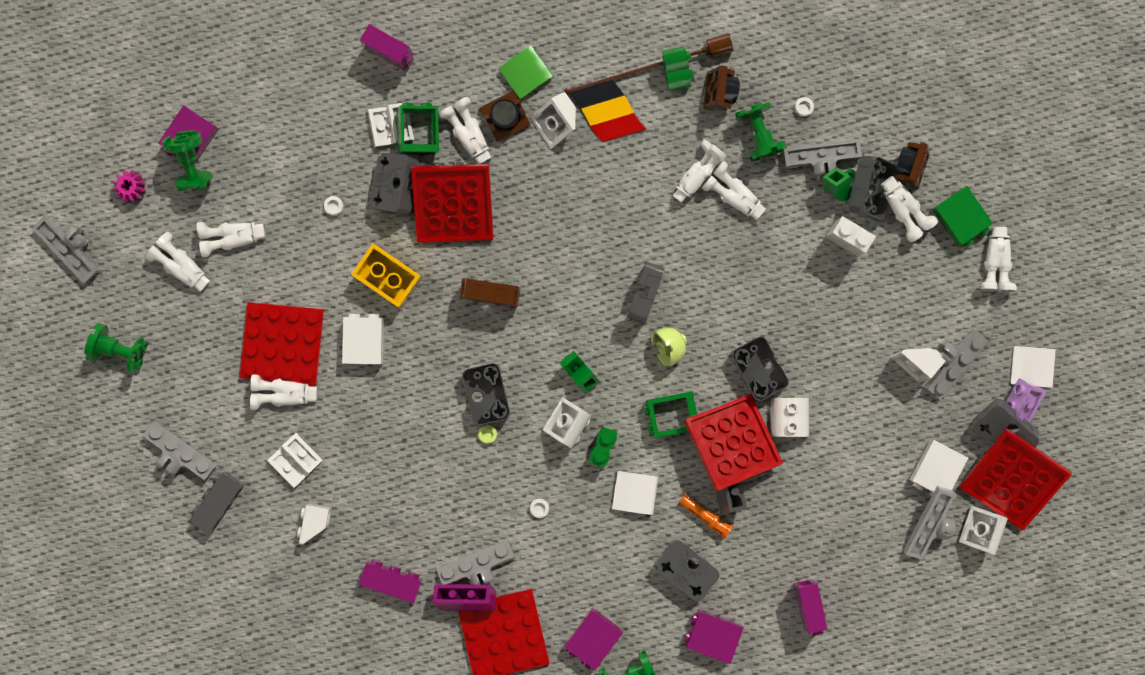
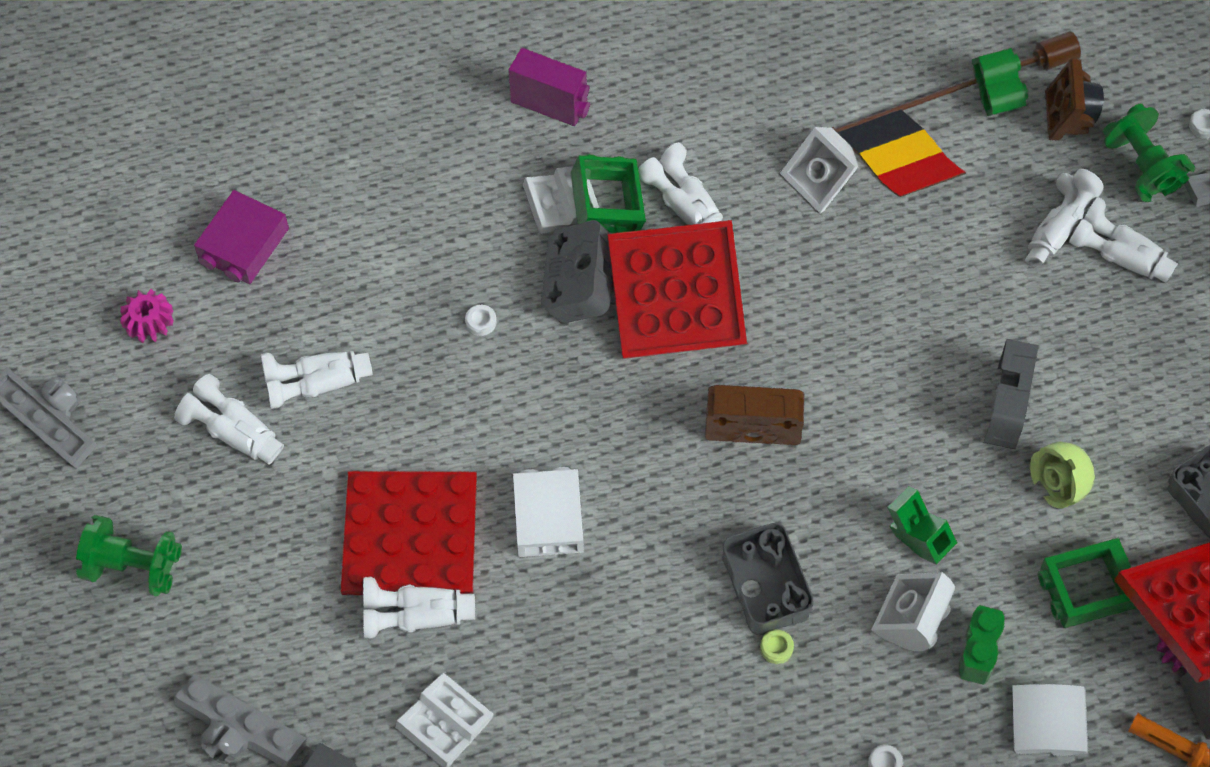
camera: 10 degrees left, 25 degrees down
(184, 147) = (241, 248): green piece -> none
(386, 275) = (579, 407): yellow brick -> none
(504, 115) = (742, 167): piece -> none
(526, 72) = (766, 110): bright green slope -> none

